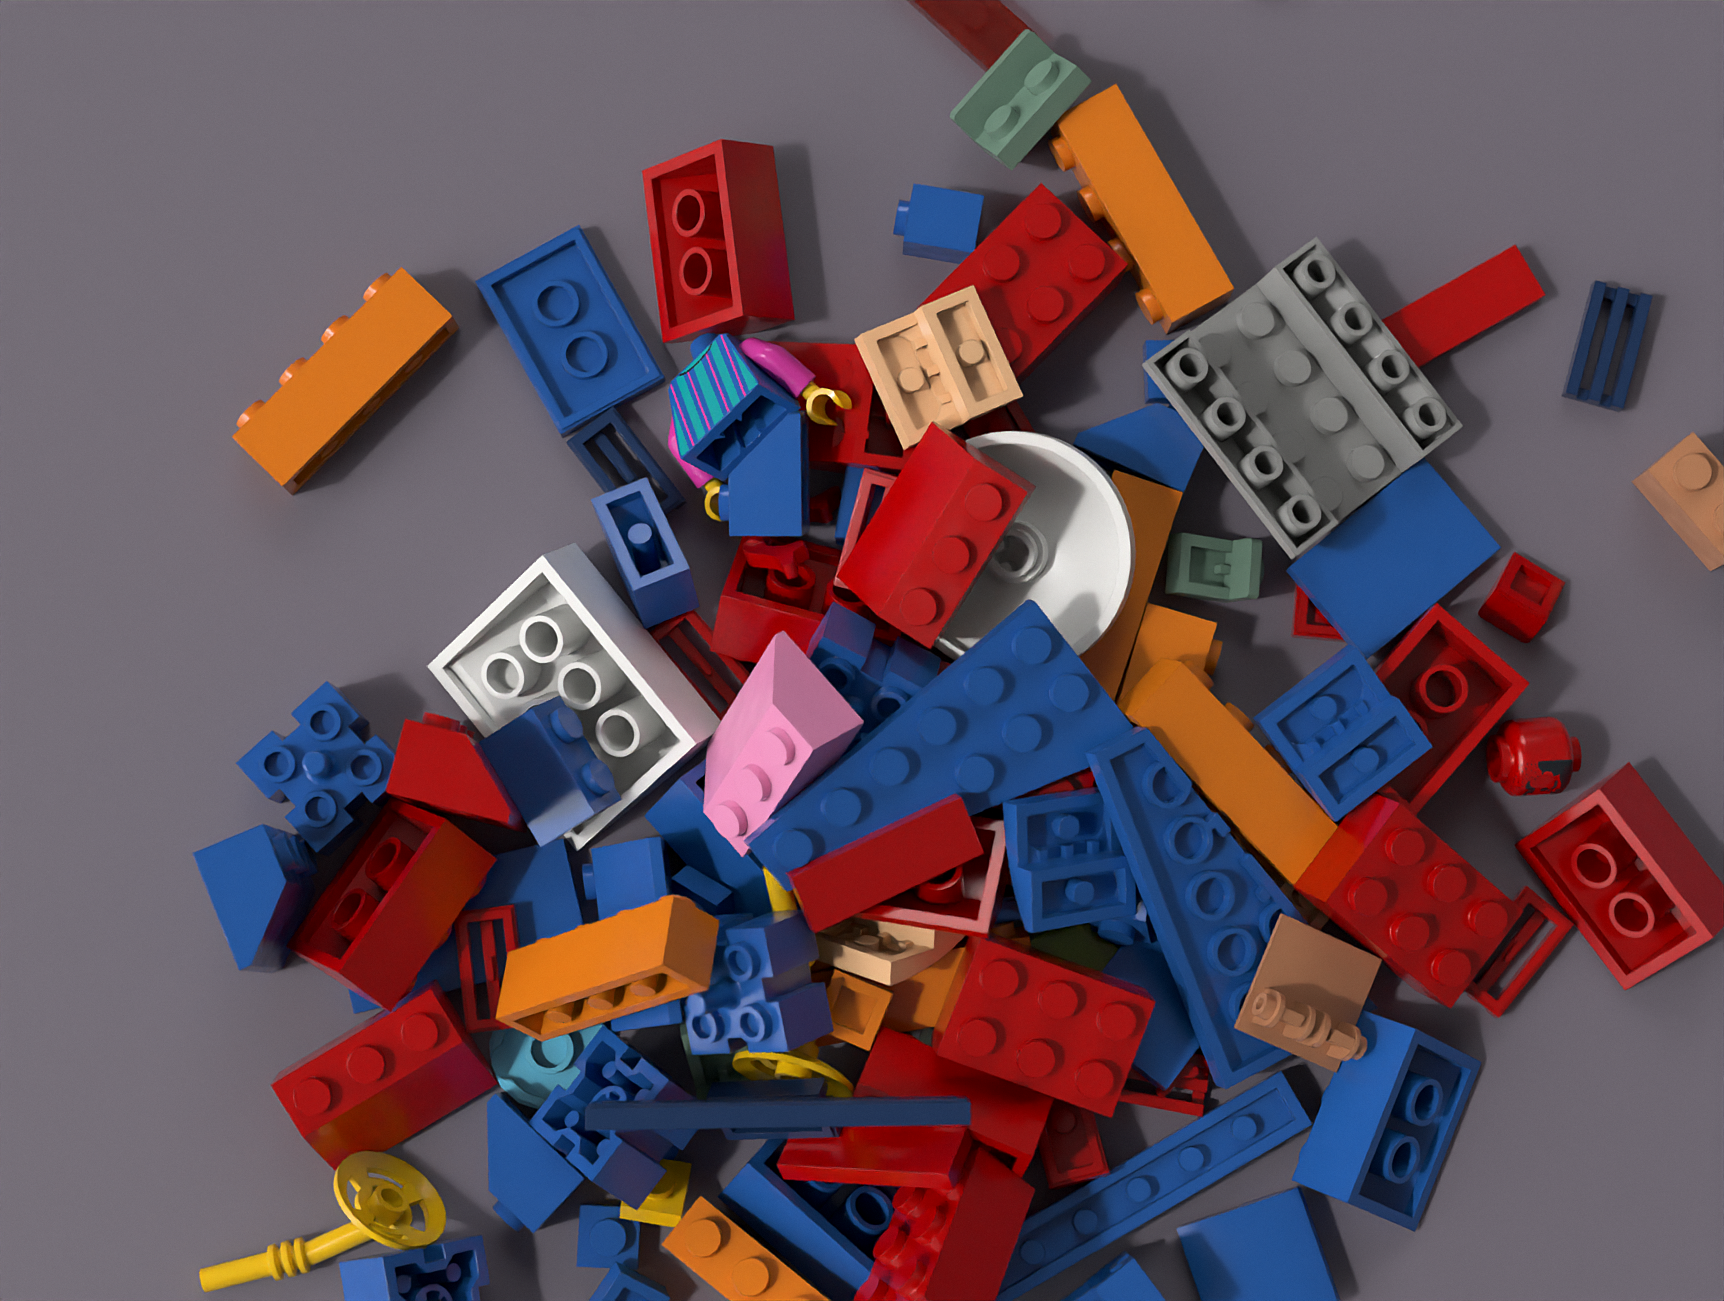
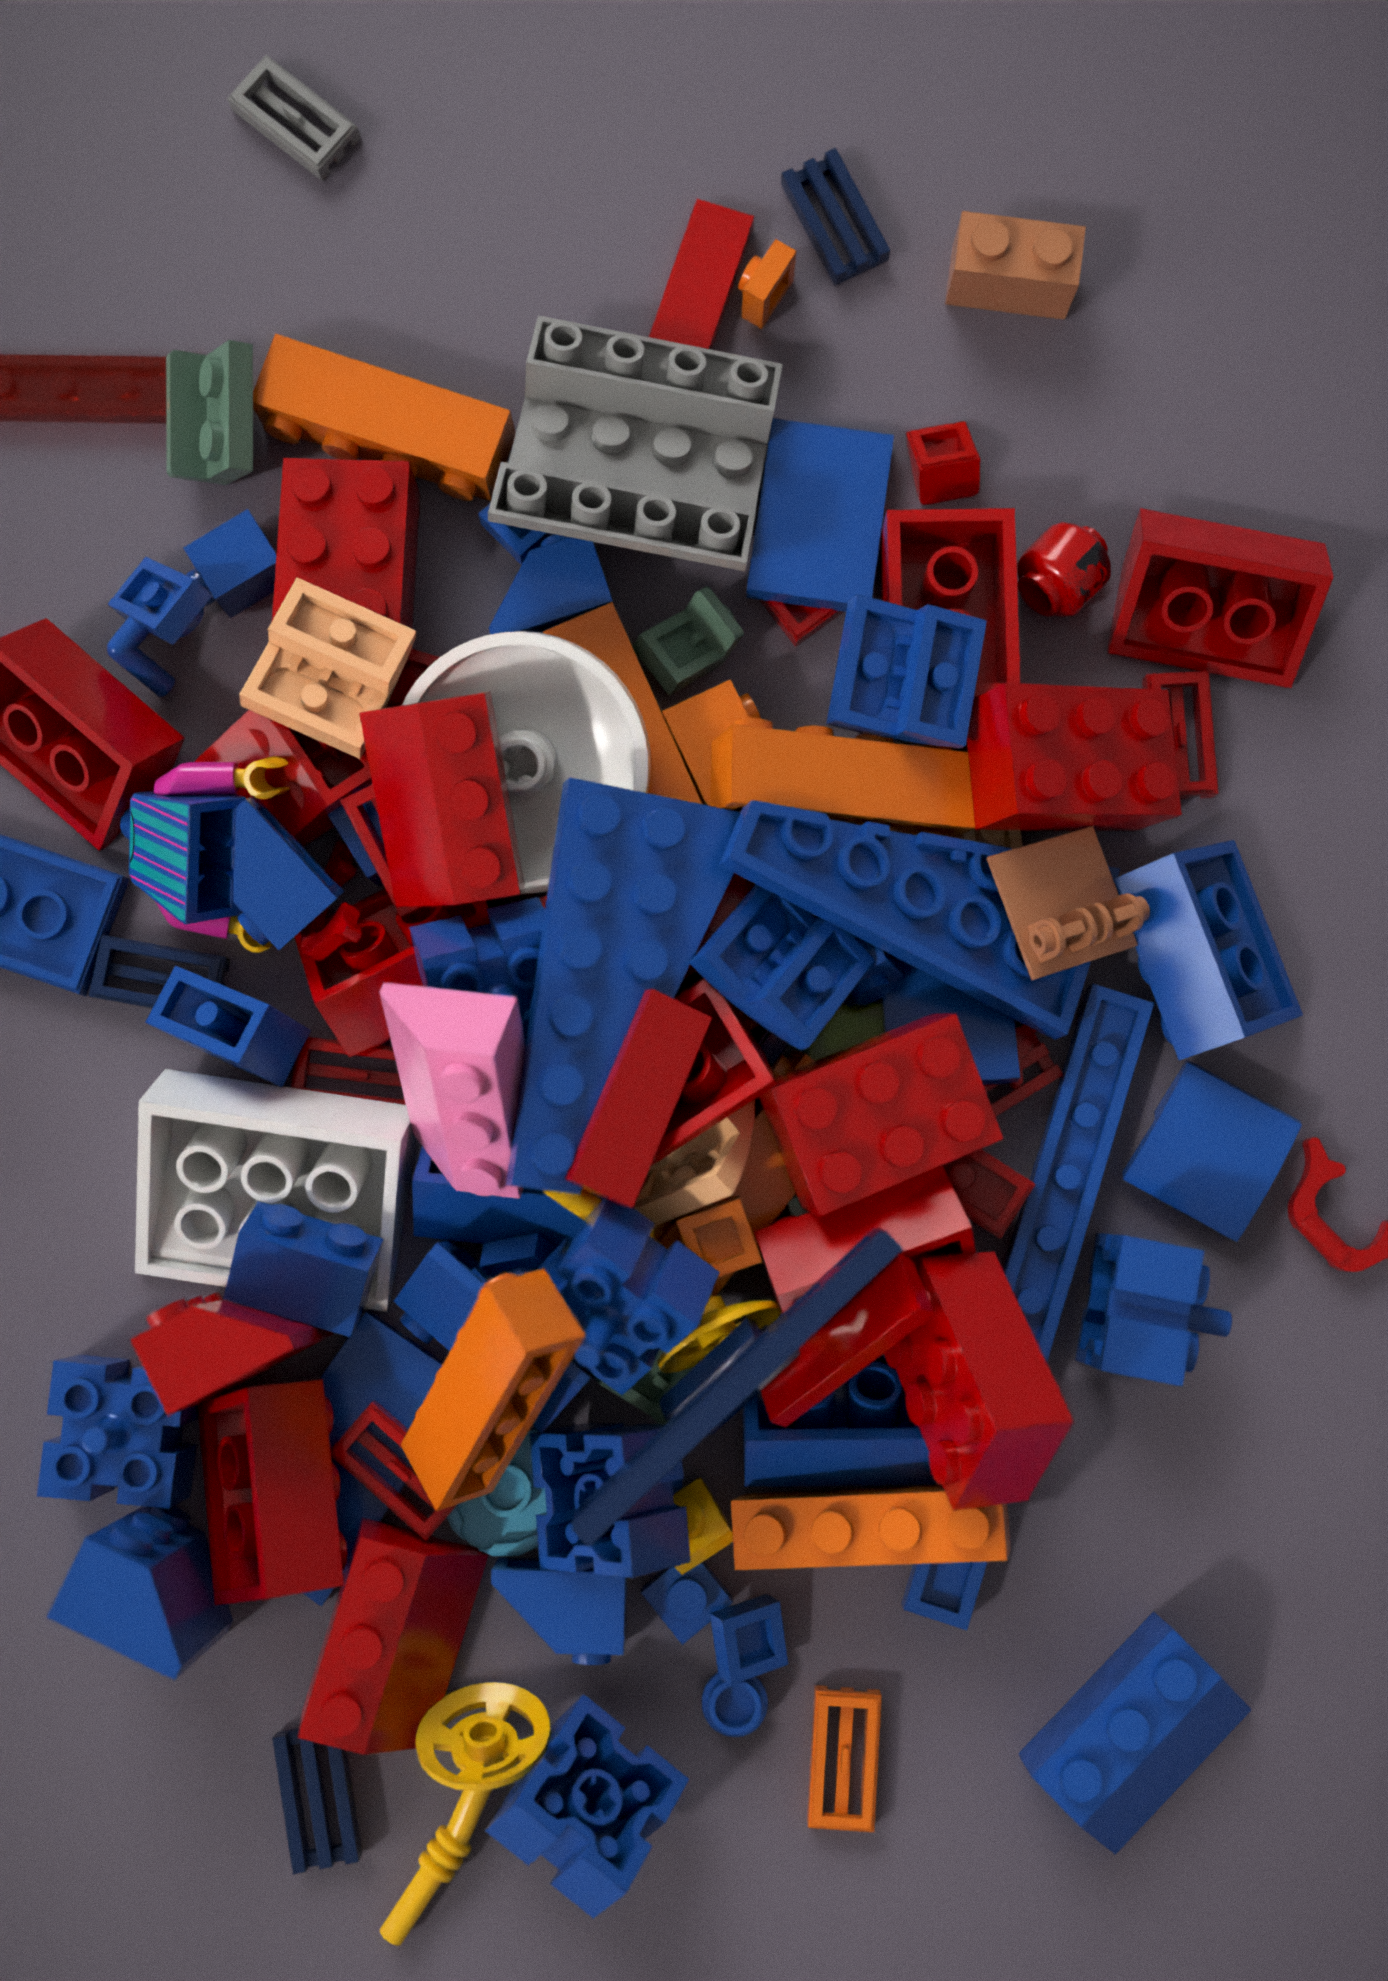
camera: 40 degrees left, 0 degrees up
(207, 1184) = (325, 1853): none -> dark blue tile
(860, 205) = (157, 603): none -> blue plate
(1508, 352) = (766, 282): none -> orange plate

